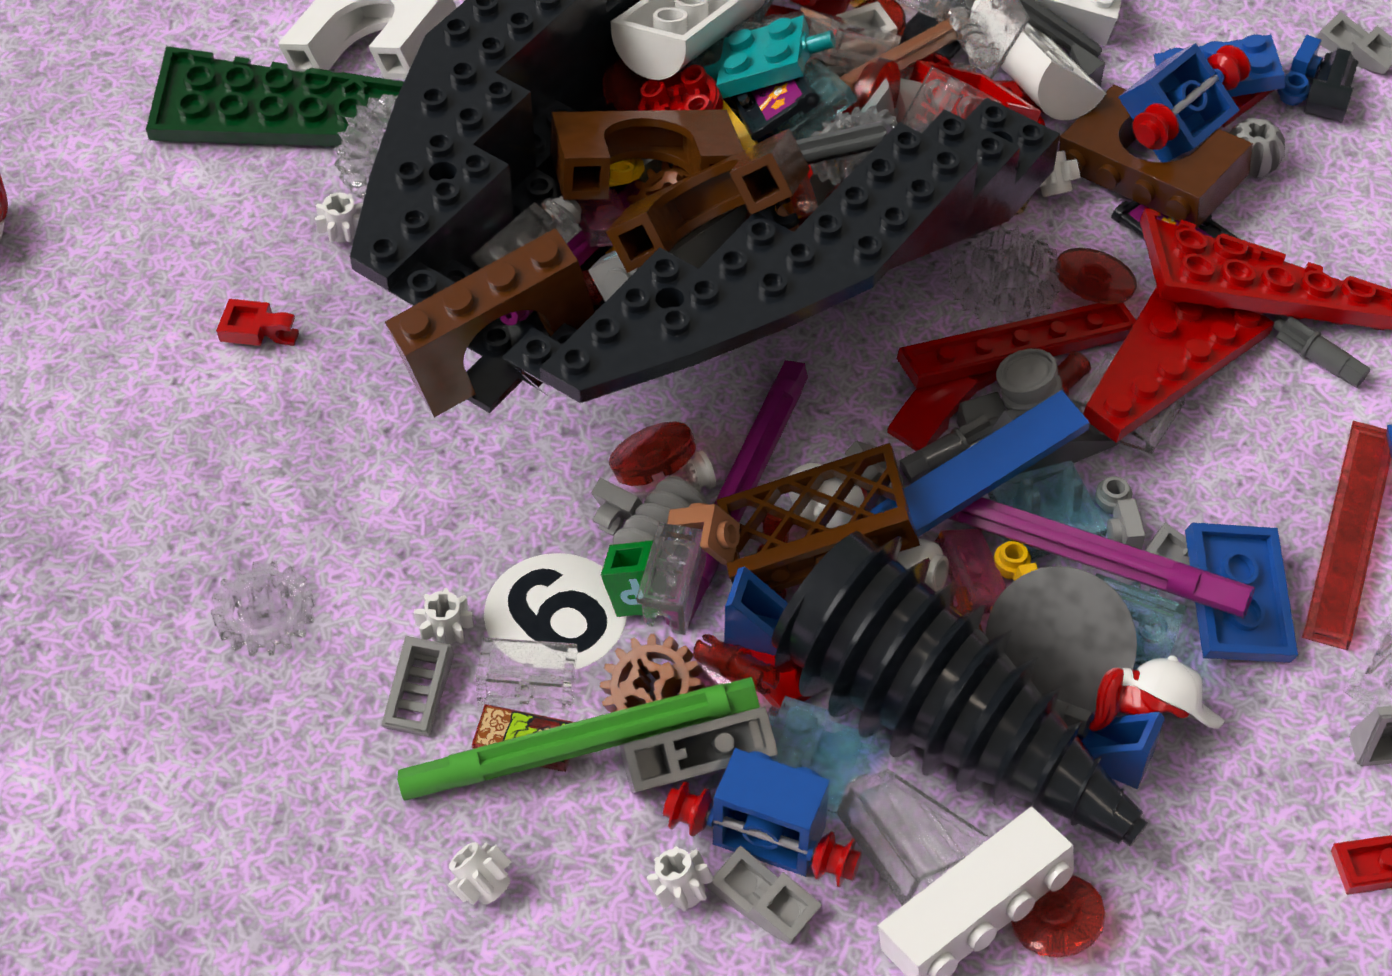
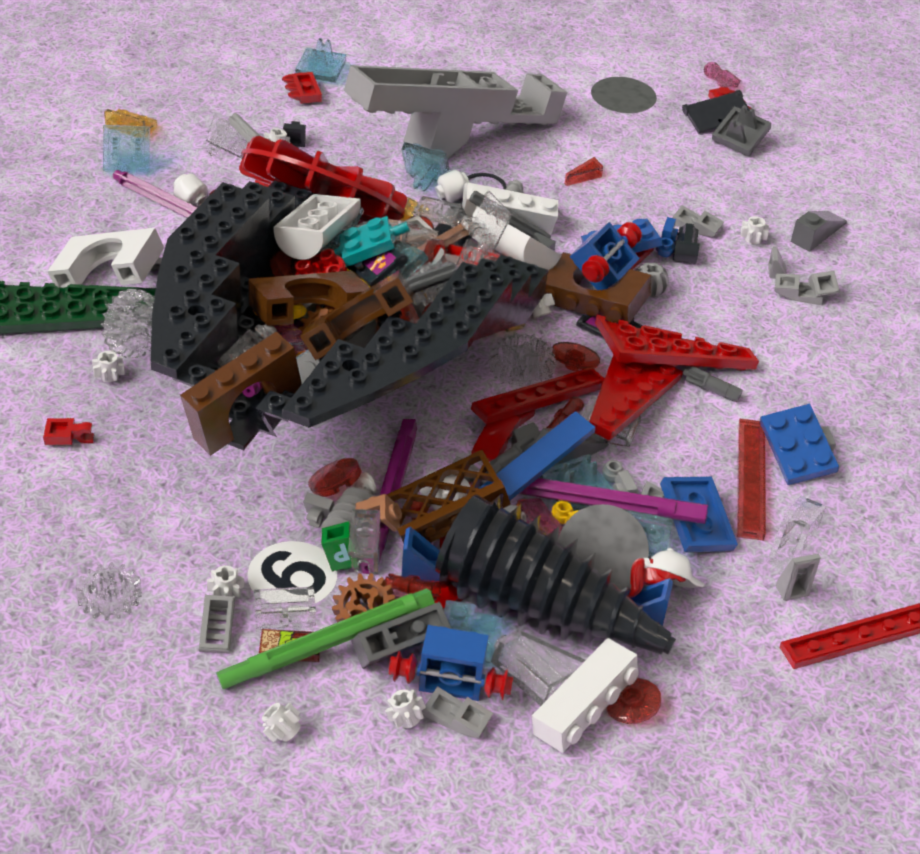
camera: 15 degrees left, 10 degrees down
(1028, 378) = (550, 411): light grey wheel -> none

